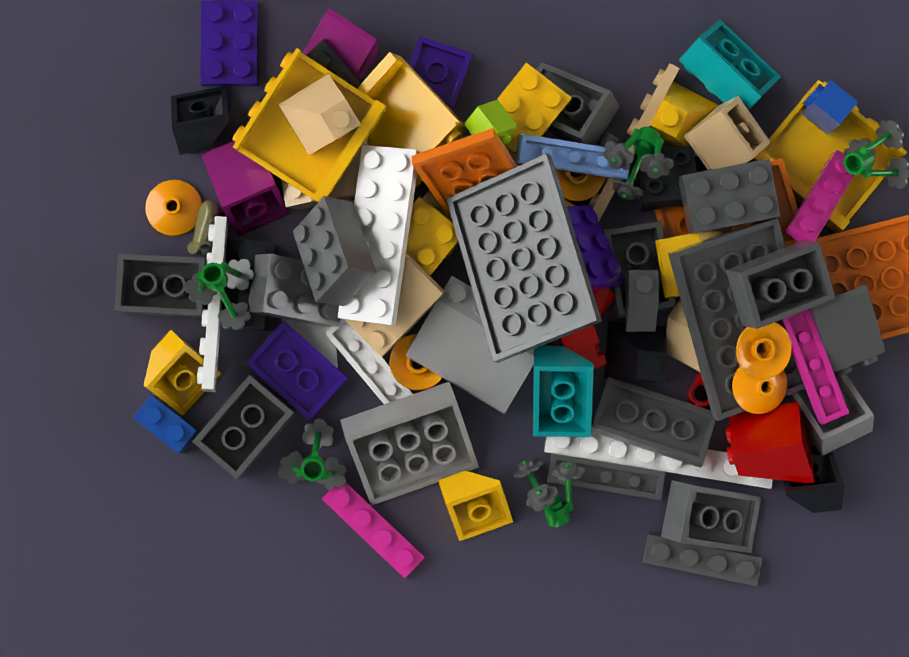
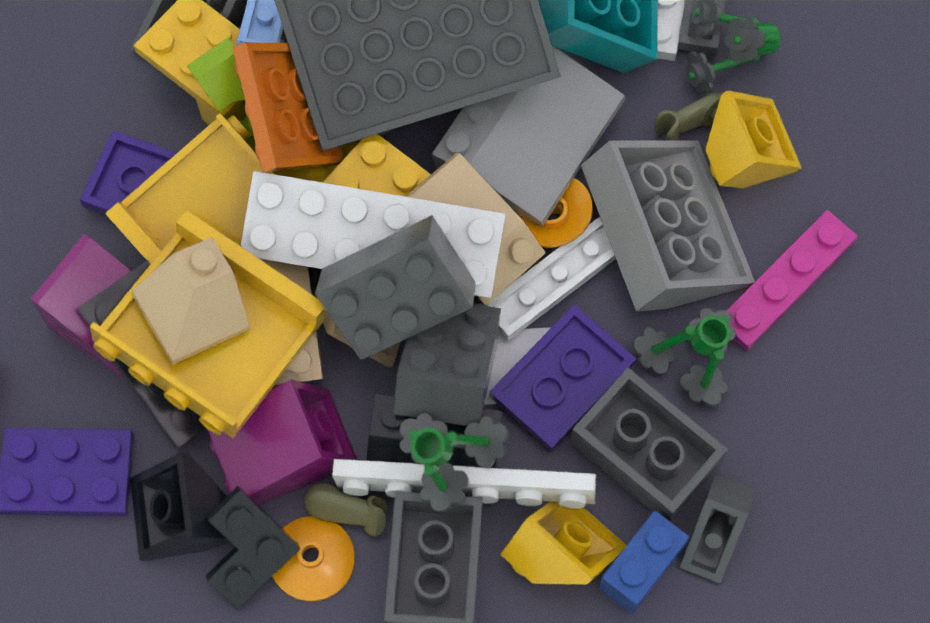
camera: 85 degrees left, 15 degrees down
(175, 169) = (258, 550): none -> black plate
(193, 474) = (717, 528): none -> dark grey slope
(498, 470) = (690, 117): none -> olive piece

